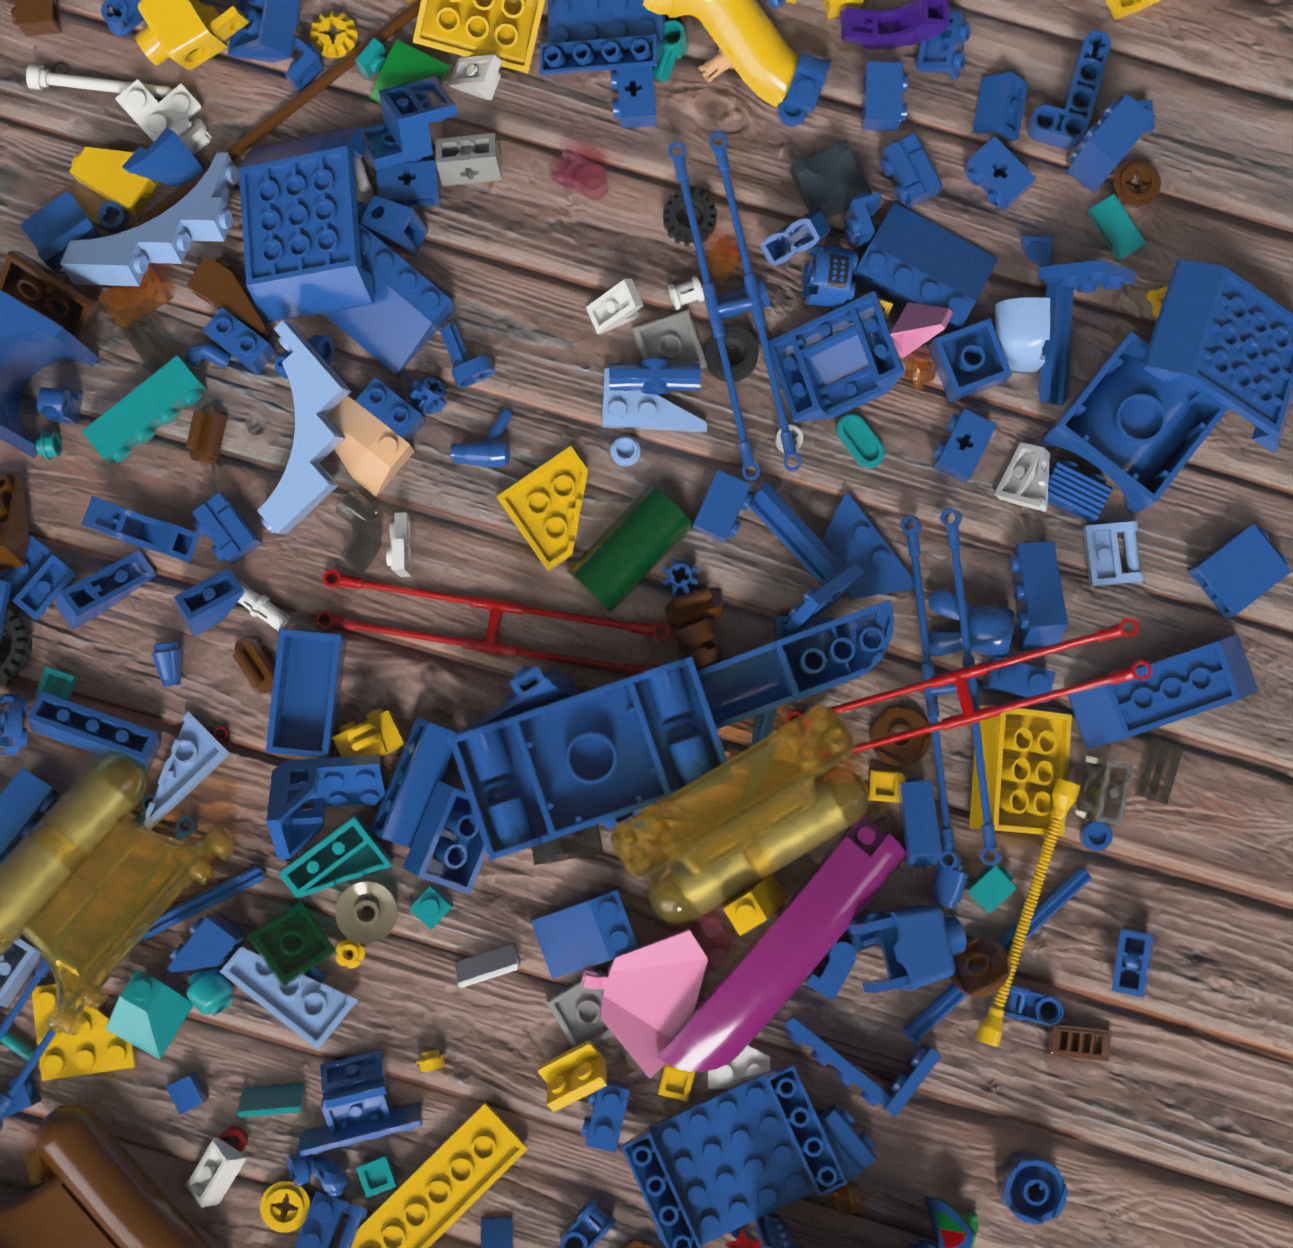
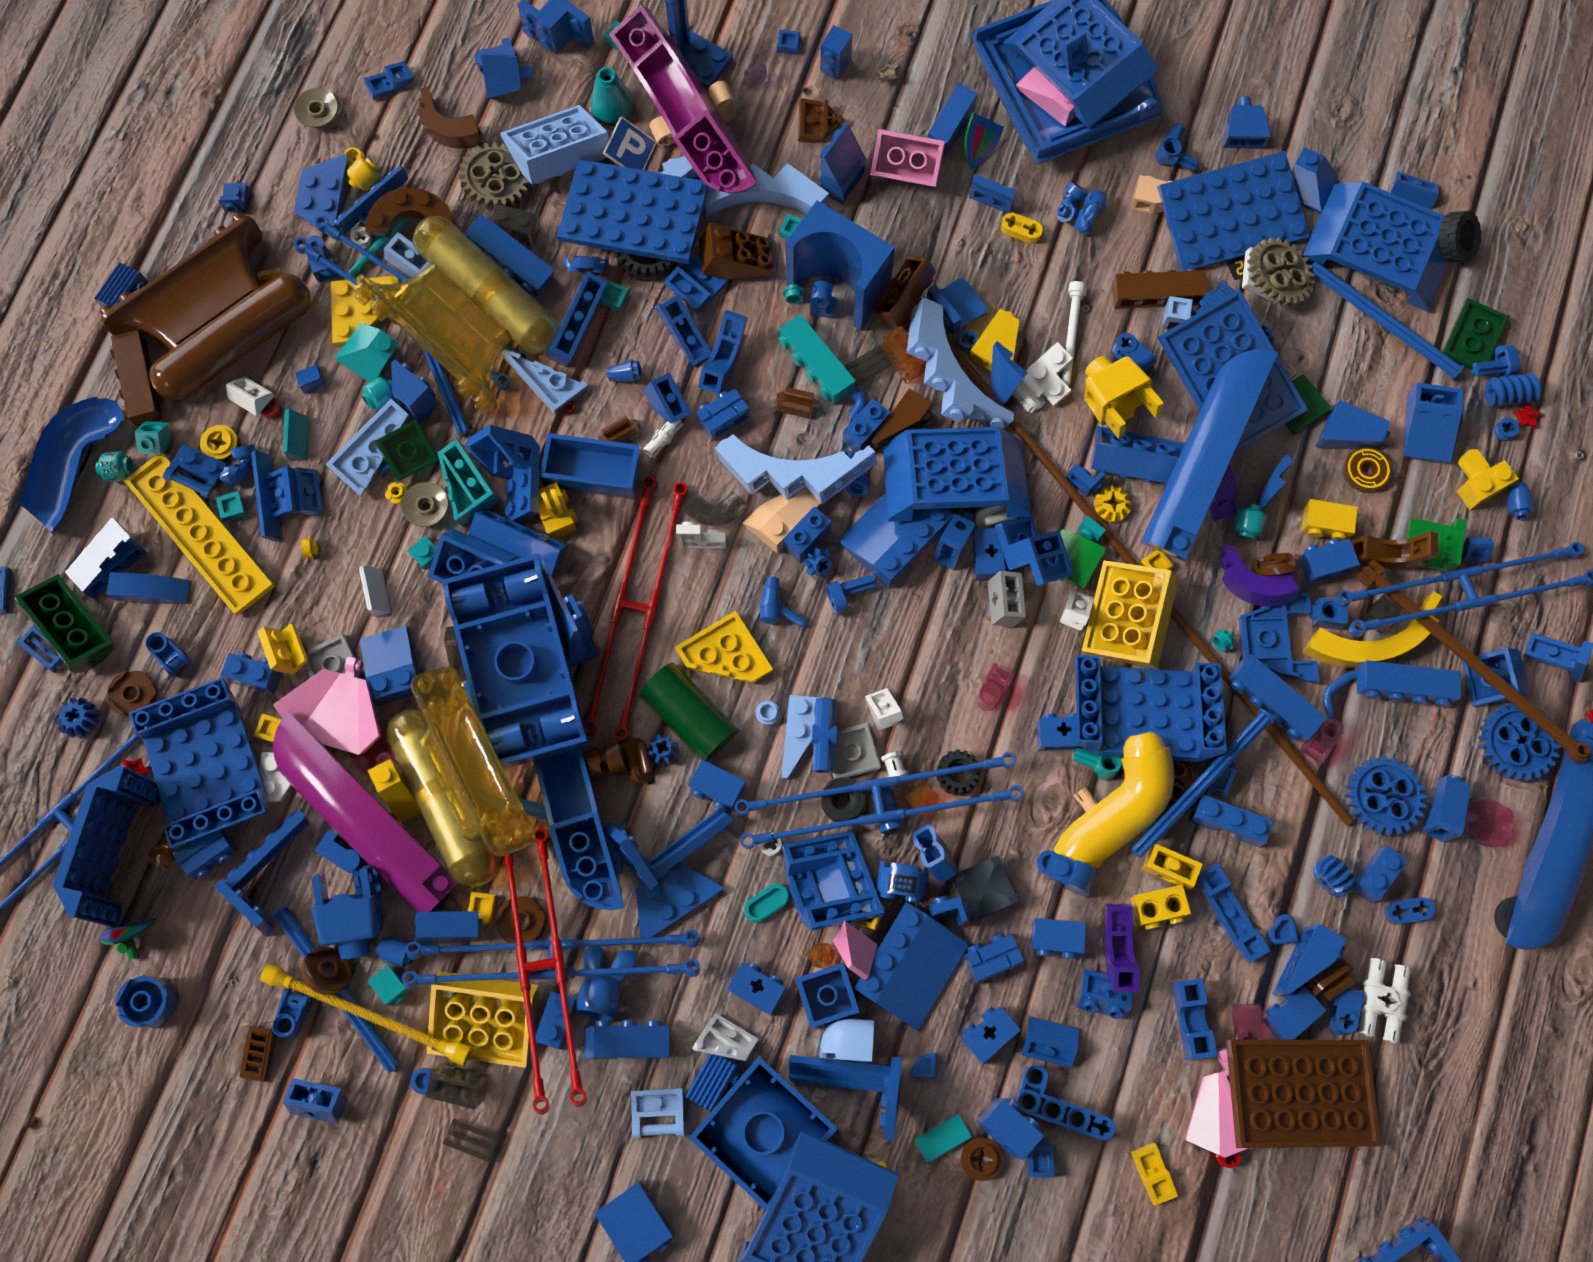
camera: 100 degrees right, 10 degrees down
(1174, 691) = (535, 1152): blue slope -> none

